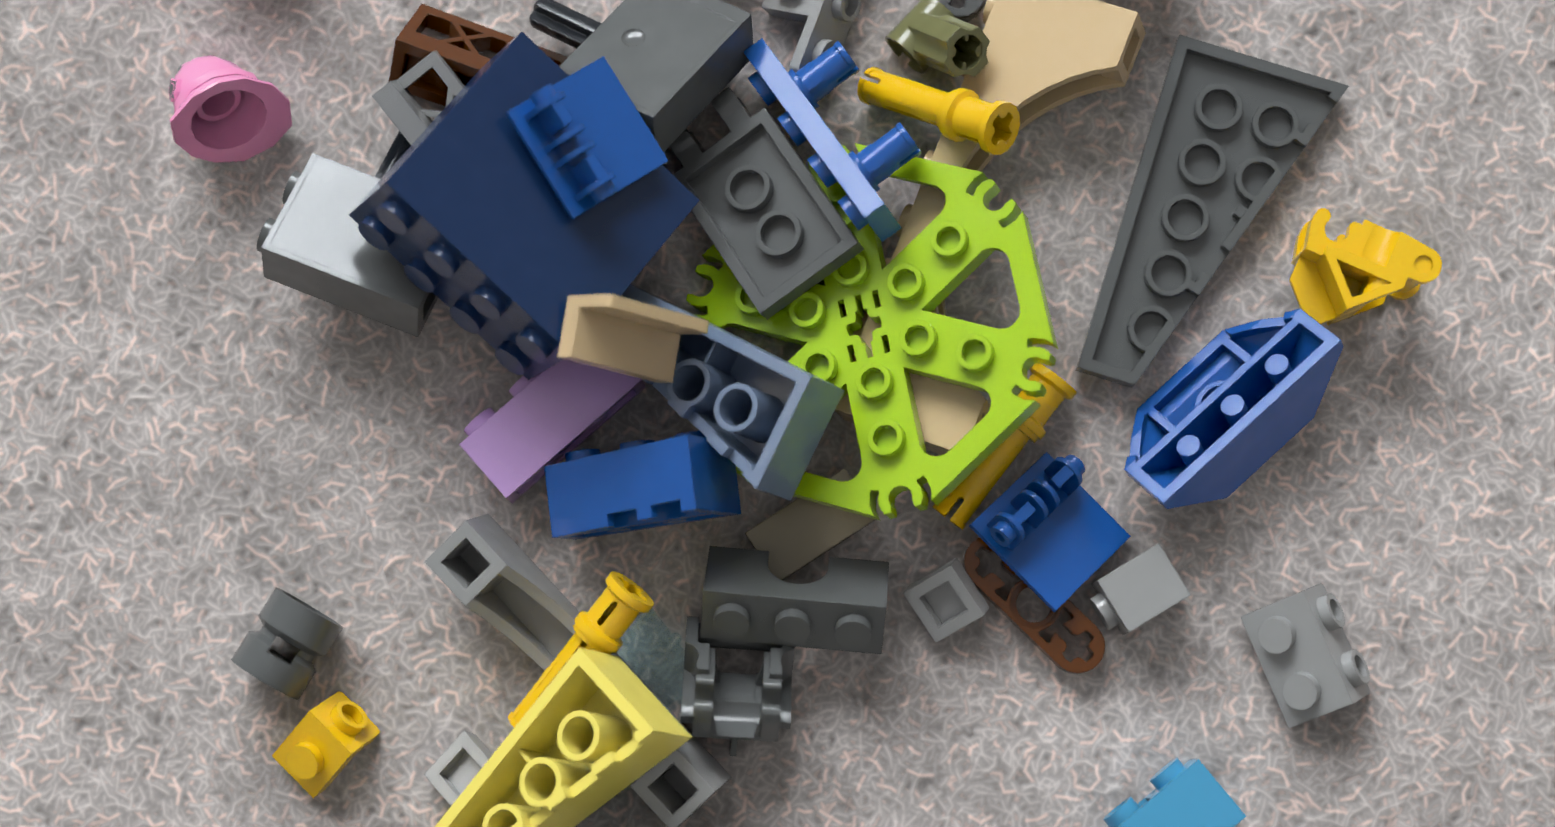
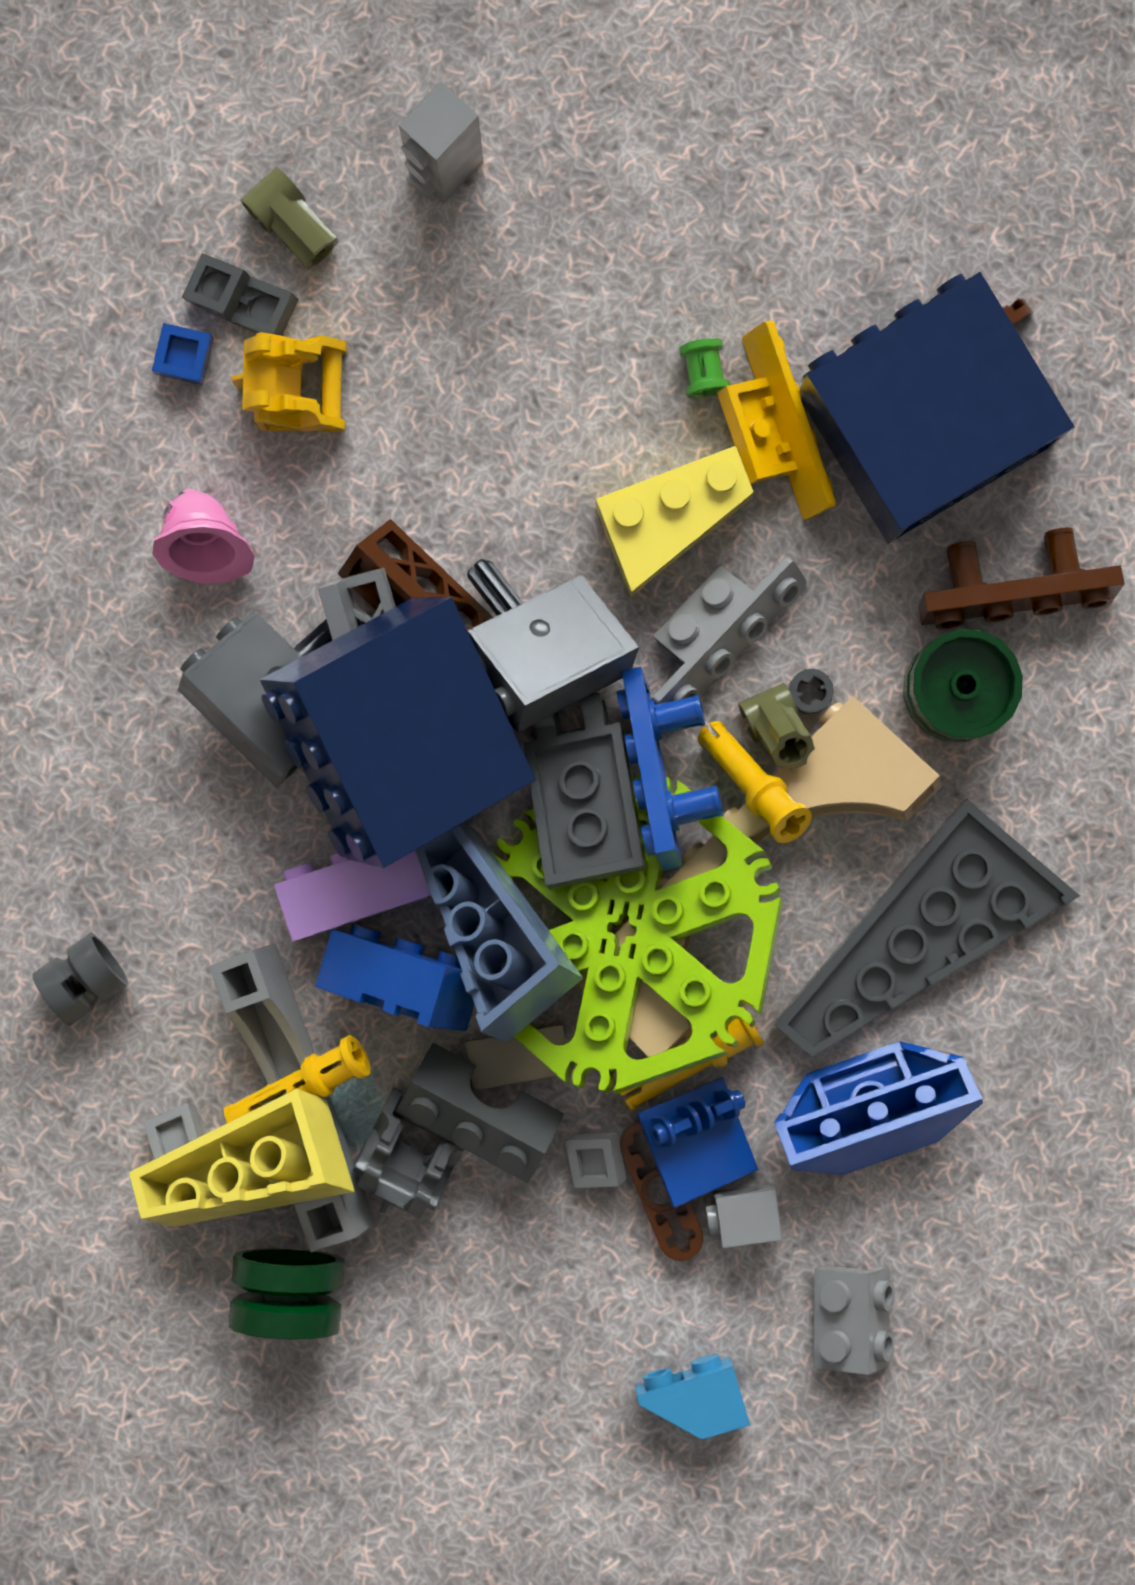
camera: 15 degrees right, 5 degrees up
(325, 742) = (79, 1065): yellow bracket -> none
(586, 137) = (467, 702): blue hinge -> none
(625, 335) = (429, 870): tan panel -> none
(1356, 268) = (1019, 1045): yellow piece -> none

